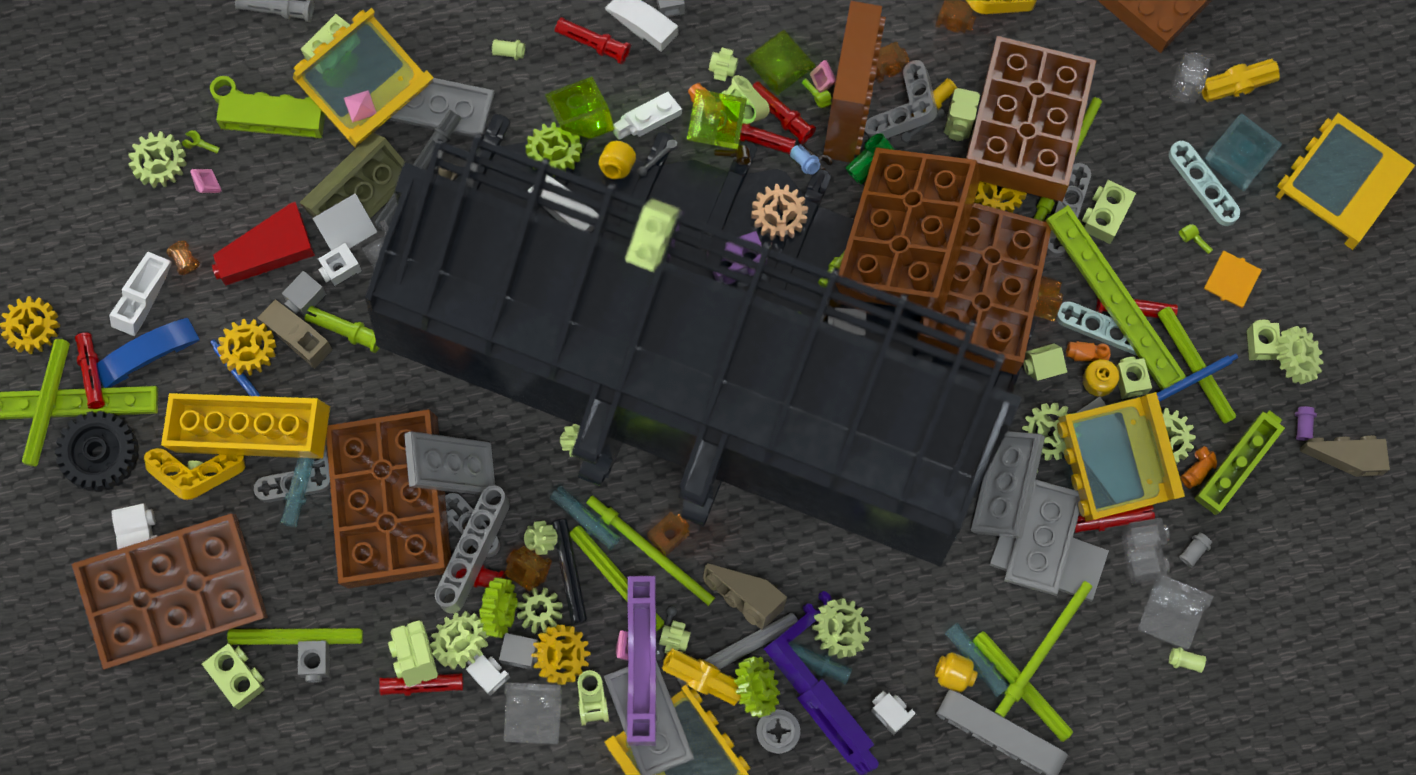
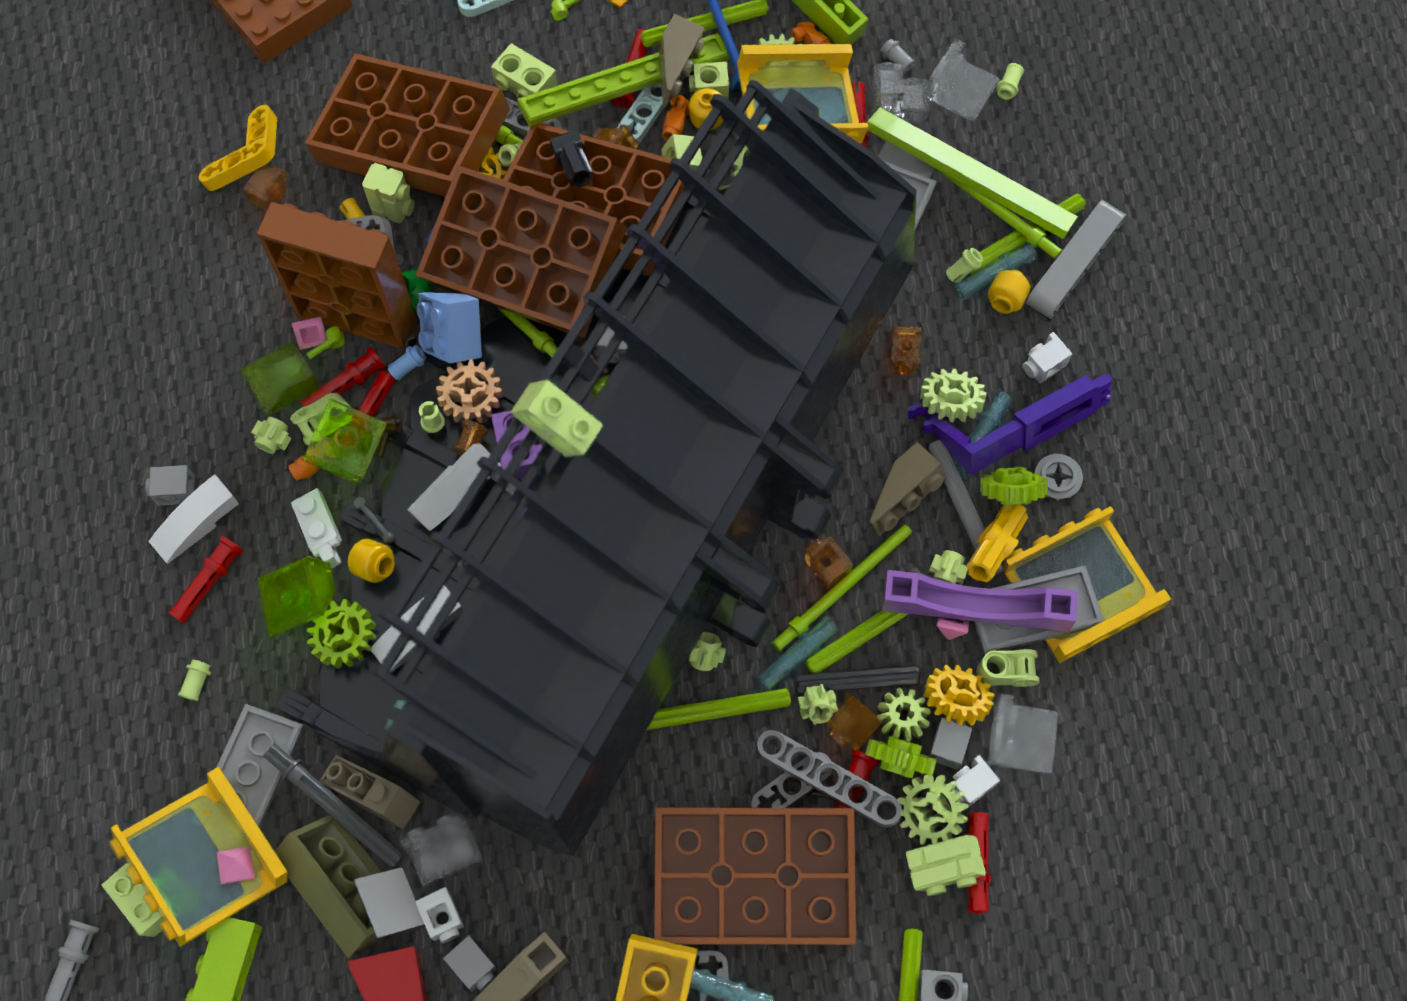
camera: 80 degrees left, 5 degrees down
(355, 331) = (532, 901): lime pin -> none
(448, 463) = (724, 793): light grey tile -> none
(530, 458) = (721, 708): none -> lime axle
(692, 209) = (448, 489): none -> white slope
(735, 220) = (471, 434): none -> clear orange bush
(750, 185) = (431, 419): none -> yellowish green pin
(833, 184) = (449, 326): none -> light blue slope
(890, 590) = (905, 338): none -> clear orange brick
(978, 631) = (970, 260): none -> yellowish green pin
(1016, 256) = (571, 154): none -> black piece
(1019, 207) = (507, 153): none -> yellowish green pin
(1071, 625) = (971, 173): none -> tile
(1151, 339) = (678, 46): none -> dark tan slope

